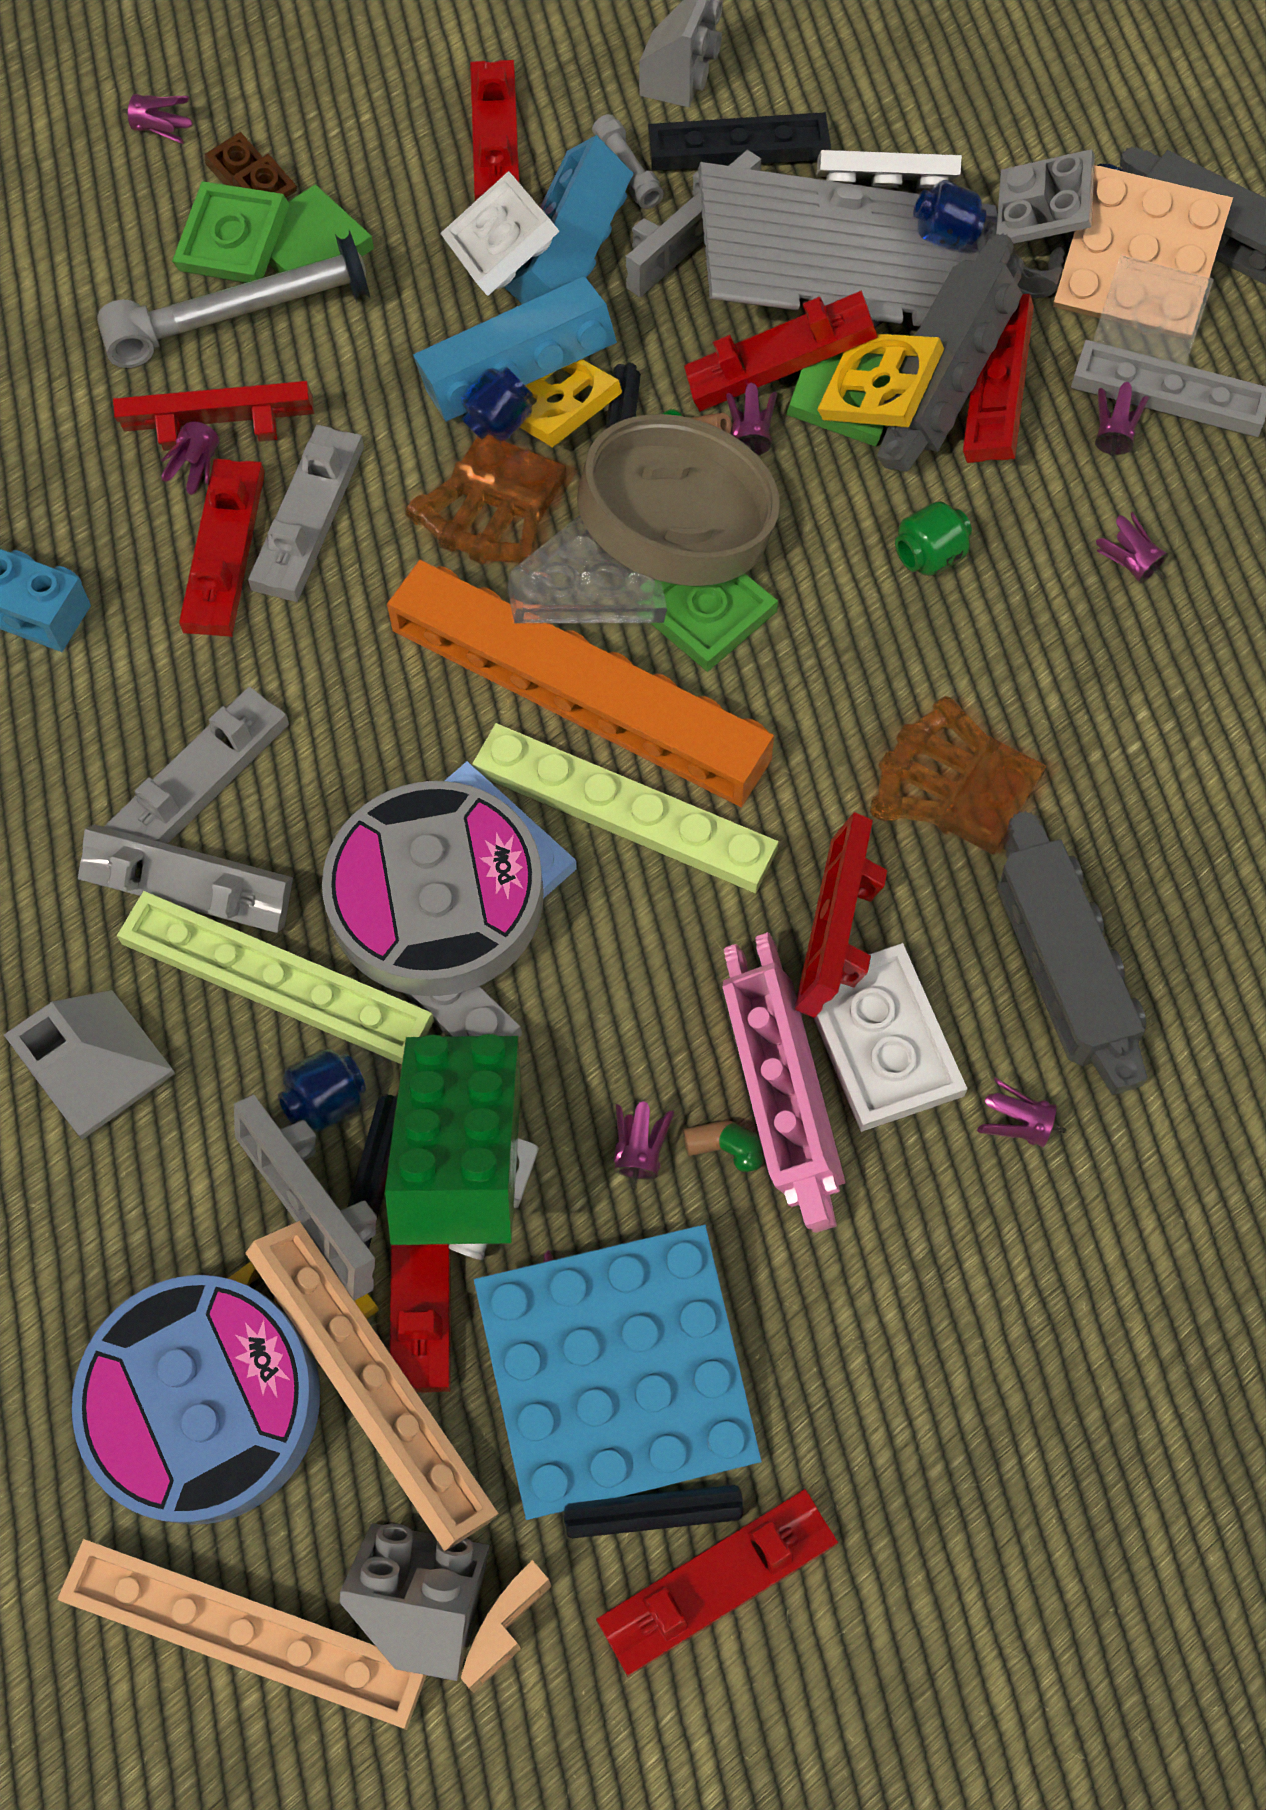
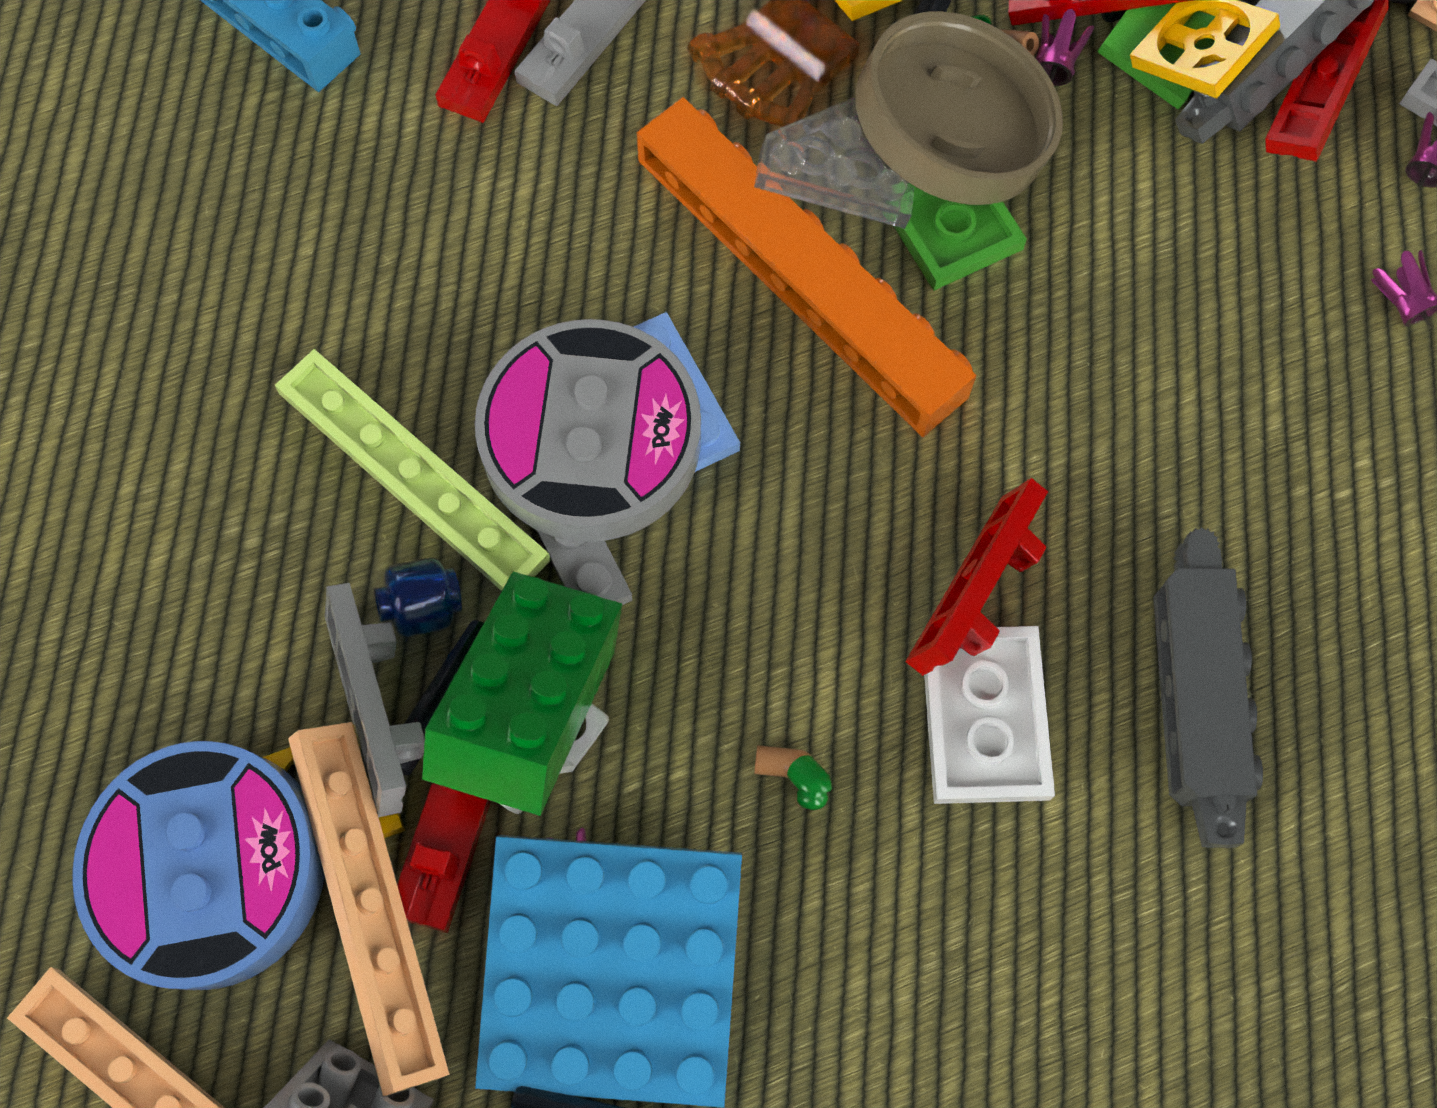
camera: 15 degrees right, 5 degrees up
(89, 1058) = (208, 497): light grey slope -> none
(186, 878) = (359, 348): light grey hinge -> none
(202, 769) = (403, 249): light grey hinge -> none
(626, 808) = (808, 405): yellowish green plate -> none
(634, 1153) = (699, 753): flat silver piece -> none
(783, 1083) = (869, 732): bright pink hinge -> none
(933, 538) = (1205, 220): green head -> none
(984, 798) = (1169, 502): clear orange plate -> none
(1036, 1116) = (1117, 846): flat silver piece -> none

